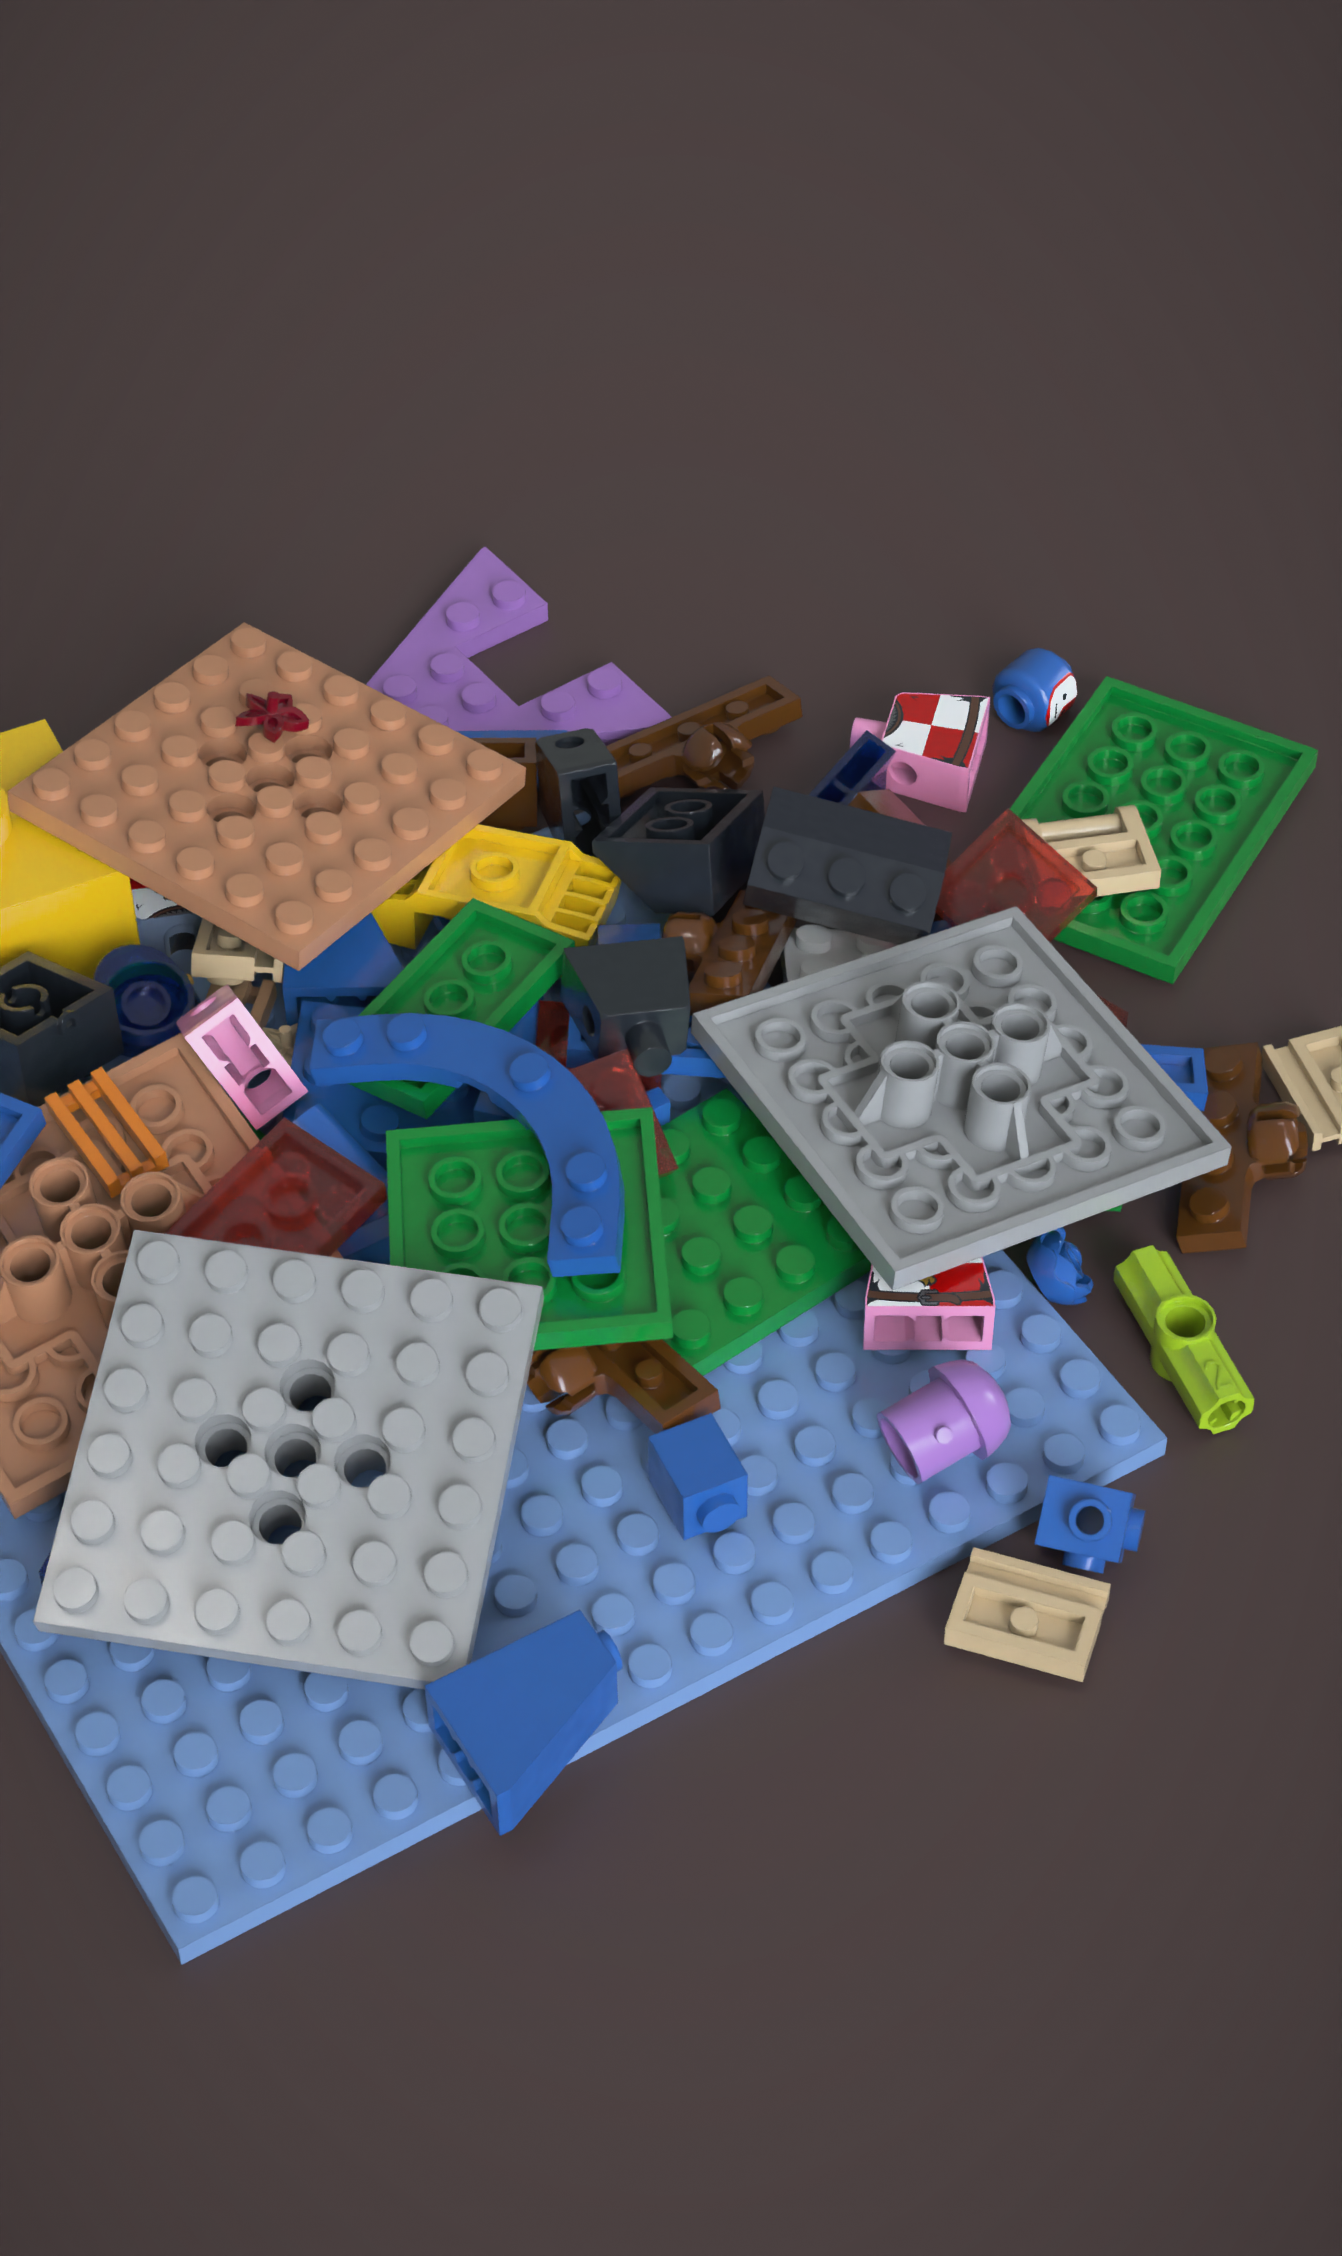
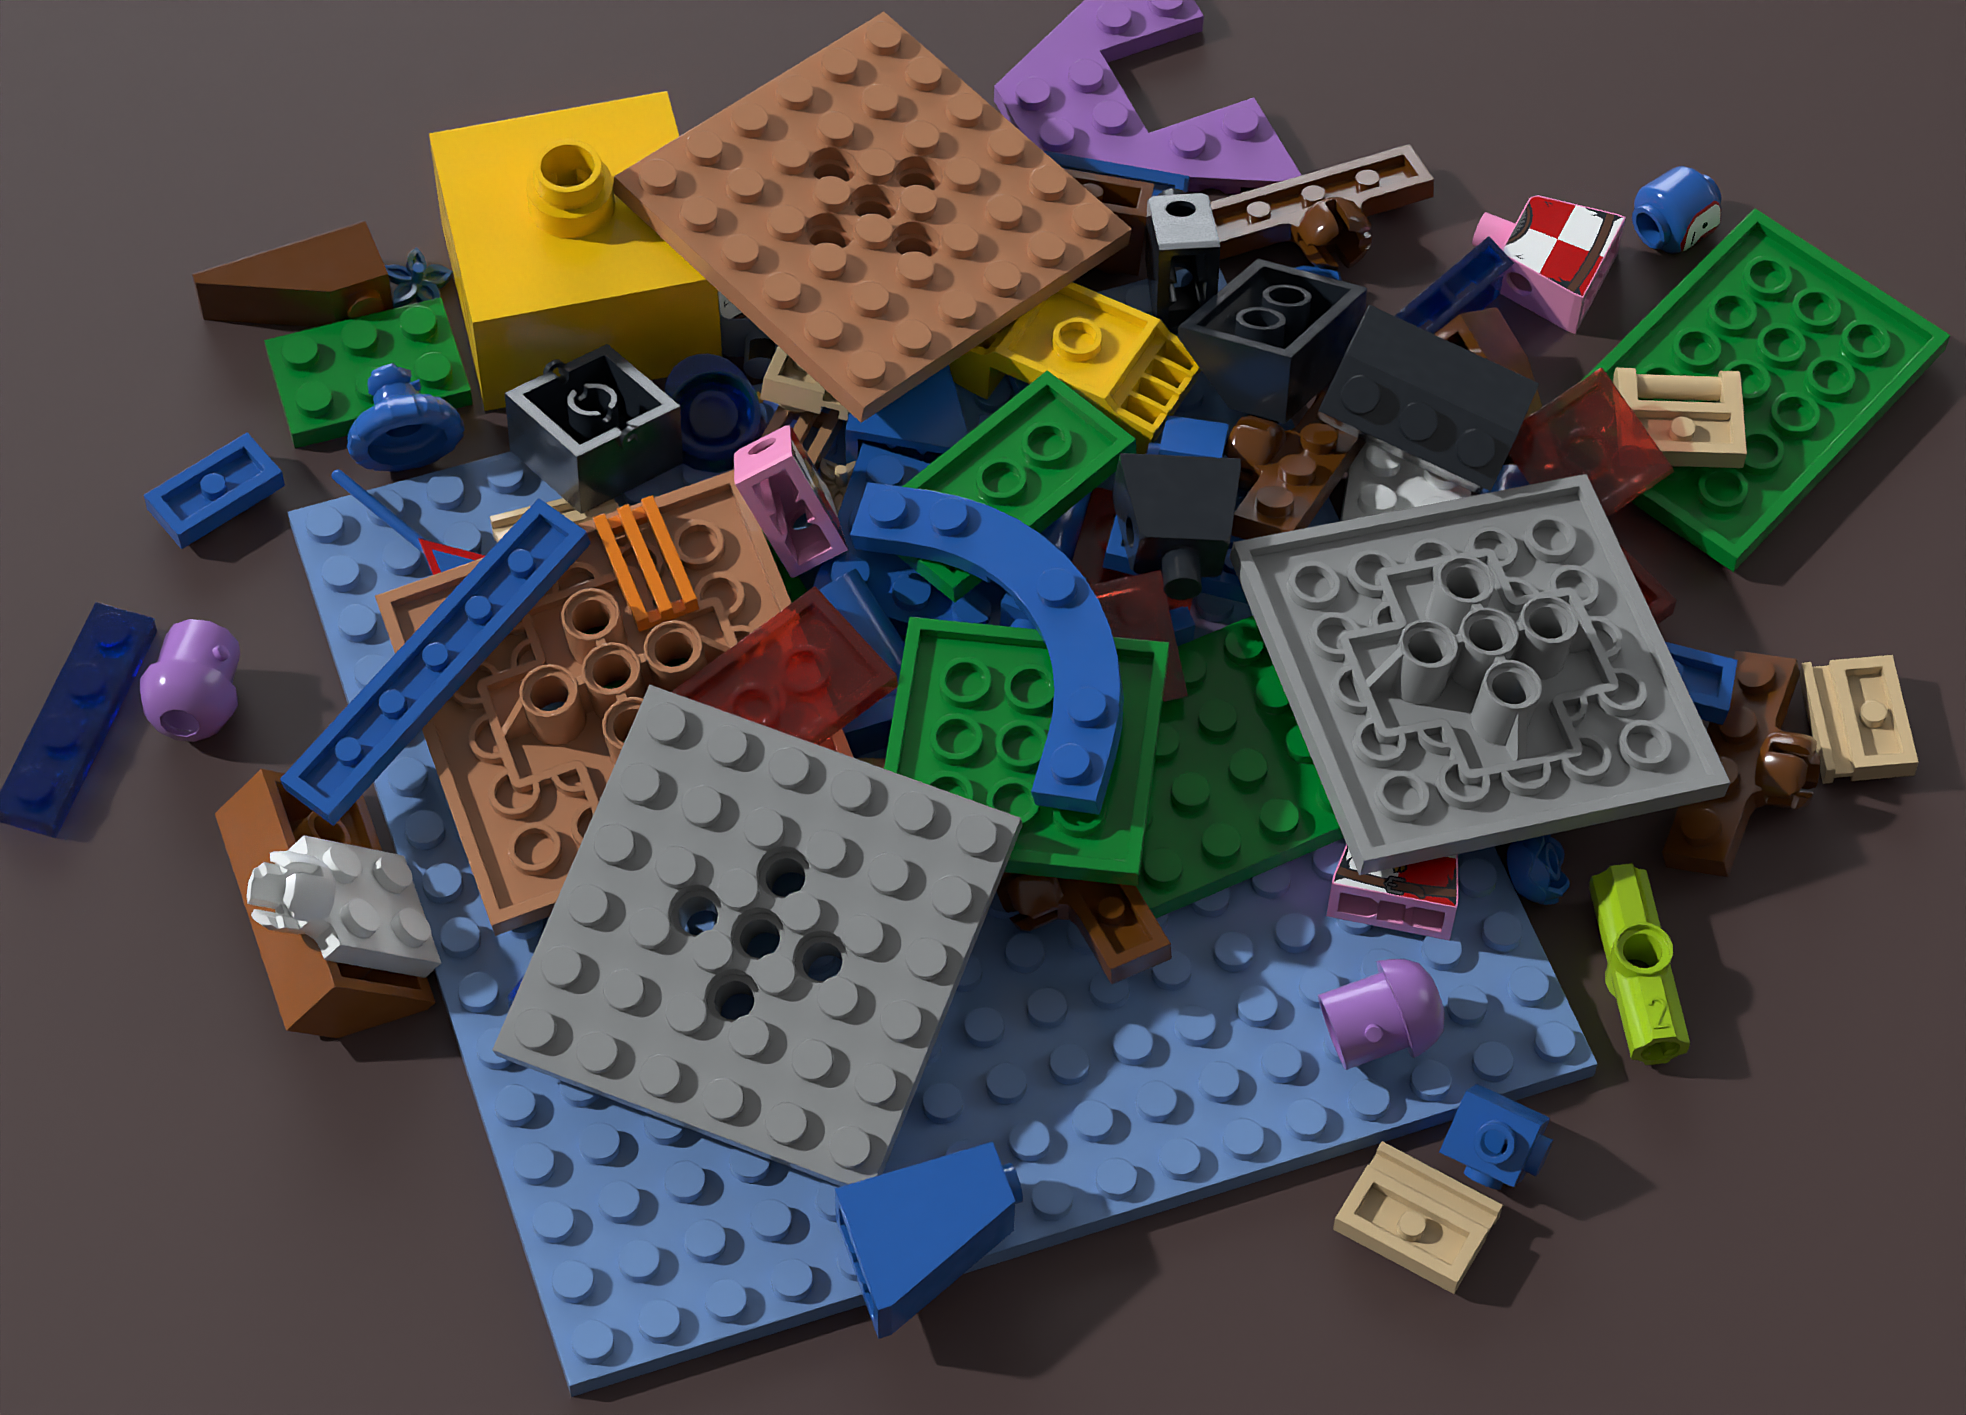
camera: 10 degrees right, 10 degrees up
(273, 714) = (890, 132): dark red plant -> none
(698, 1477) = (1135, 1023): blue brick -> none

